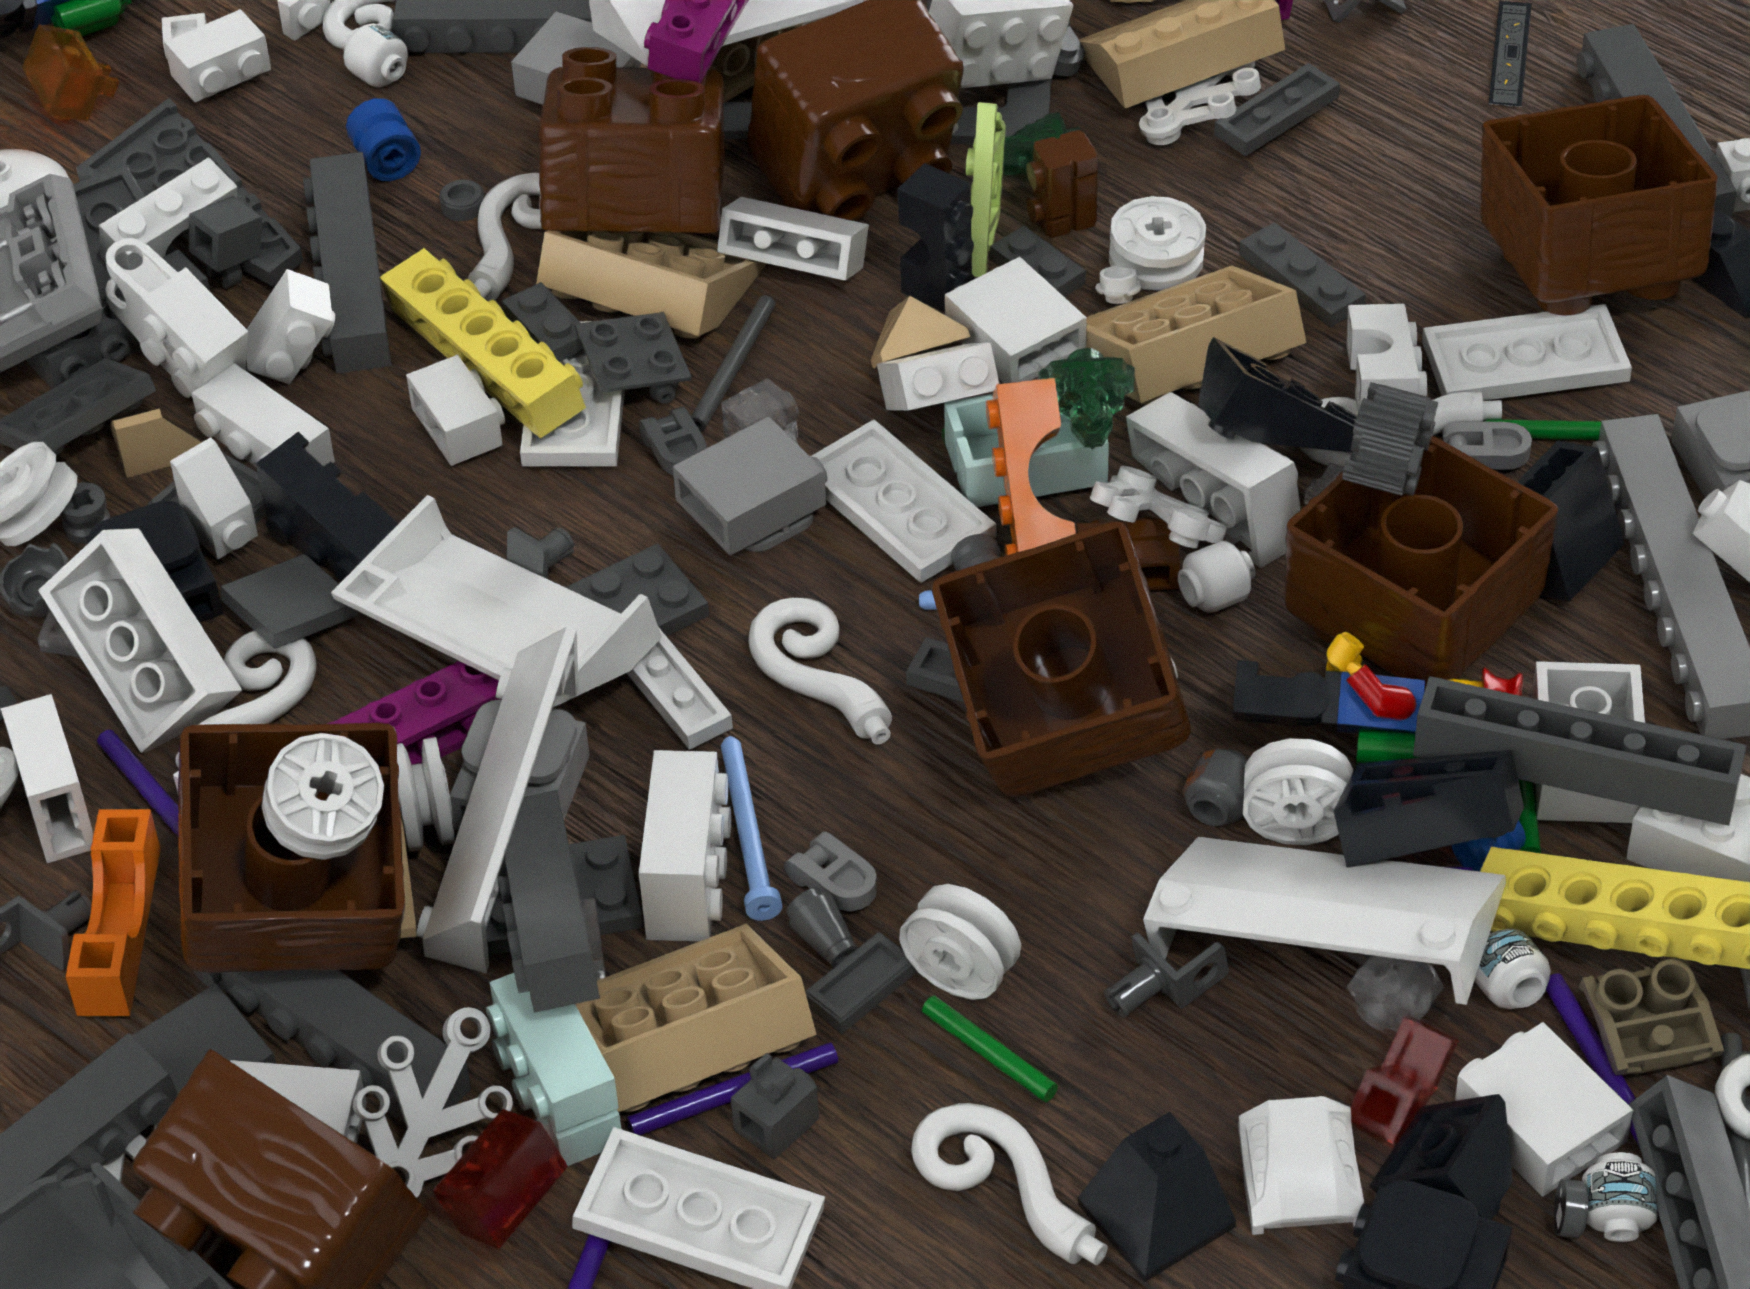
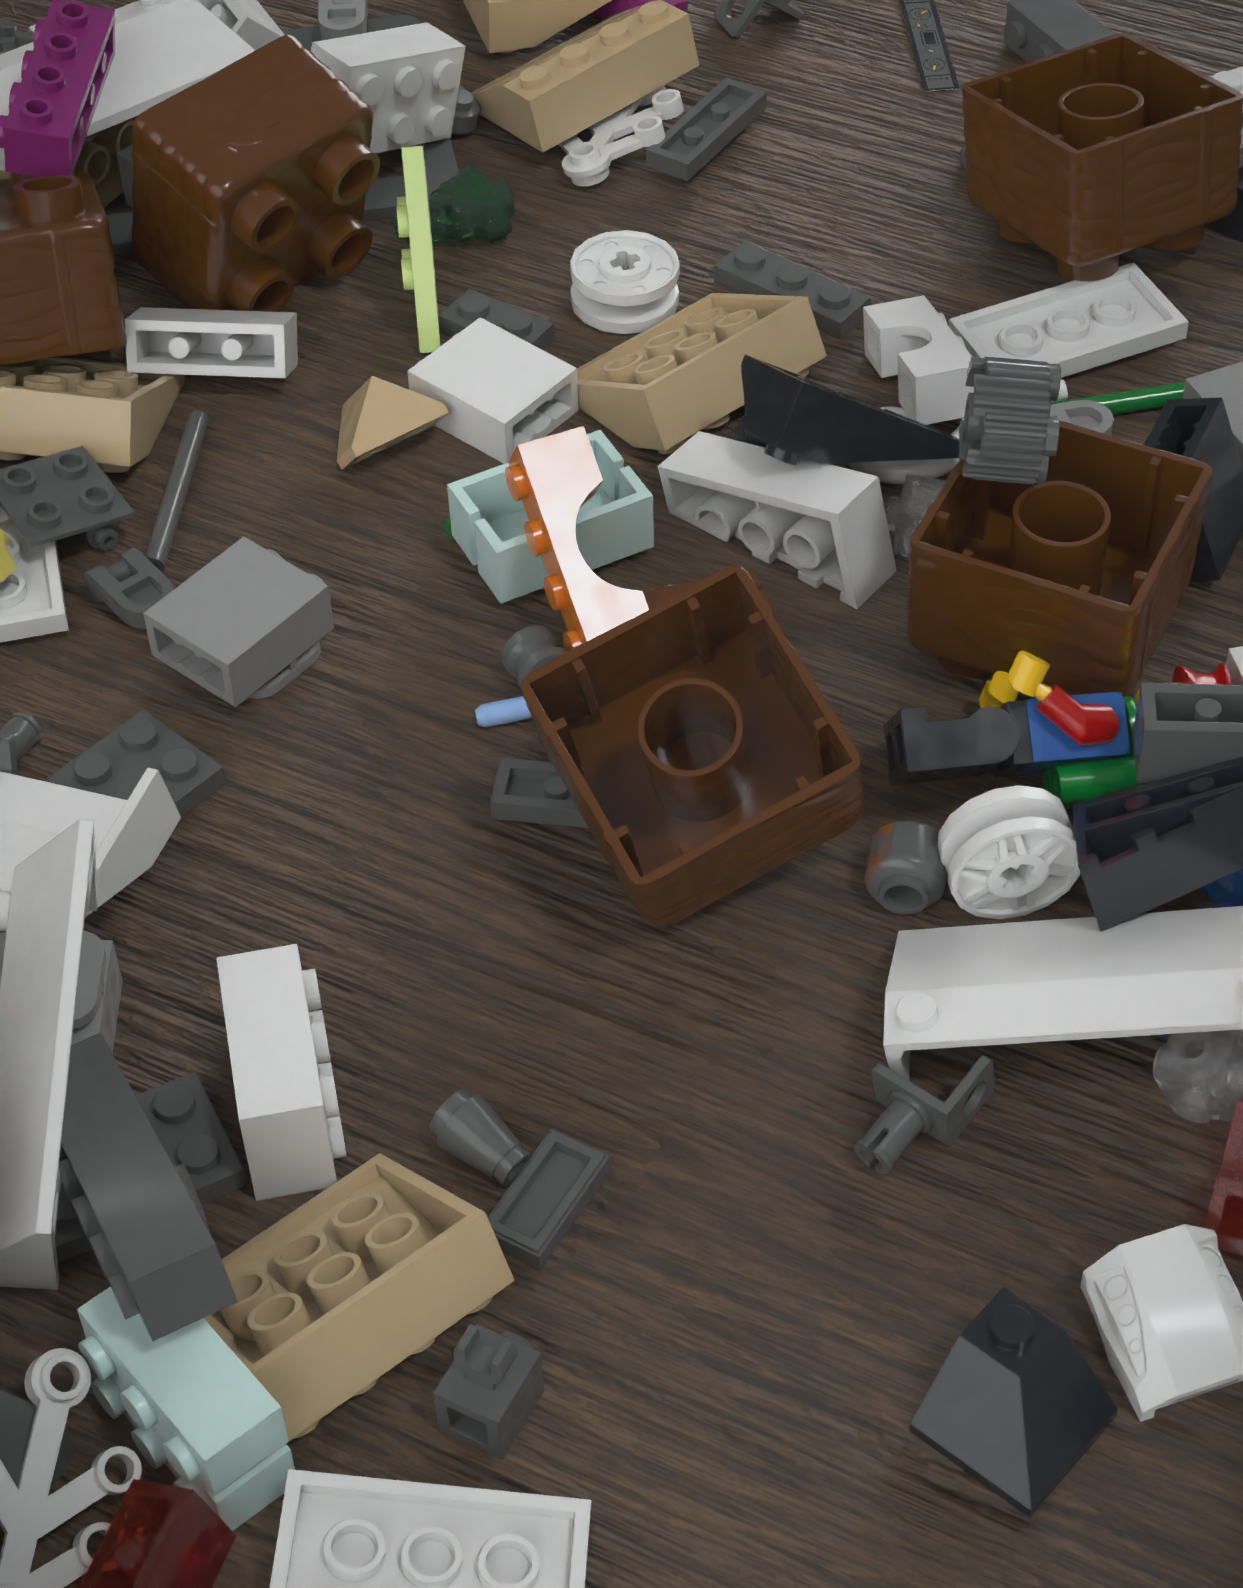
camera: 15 degrees left, 0 degrees up
(680, 694) = (220, 884): white plate -> none
(720, 1093) = (410, 1385): dark purple bar -> none
(758, 403) = (221, 529): clear brick -> none
(762, 900) = (393, 1119): light blue bar -> none
(846, 877) = (491, 1067): light grey plate -> none
(849, 695) = (431, 845): white plant -> none
(899, 500) = (421, 608): white plate -> none
(938, 376) = (430, 459): white brick -> none
(941, 214) = (386, 277): black arch -> none
(960, 941) = (665, 1121): white wheel -> none
(990, 1048) = (735, 1250): green bar -> none
(1050, 1220) = (889, 1464): white plant -> none
(1063, 184) = (505, 234): reddish brown brick -> none
(1090, 392) = (623, 441): clear green rock -> none
(1118, 284) = (595, 331): white plate -> none
(1135, 491) = (691, 551): white plant -> none
(1216, 577) = (821, 623): white head -> none

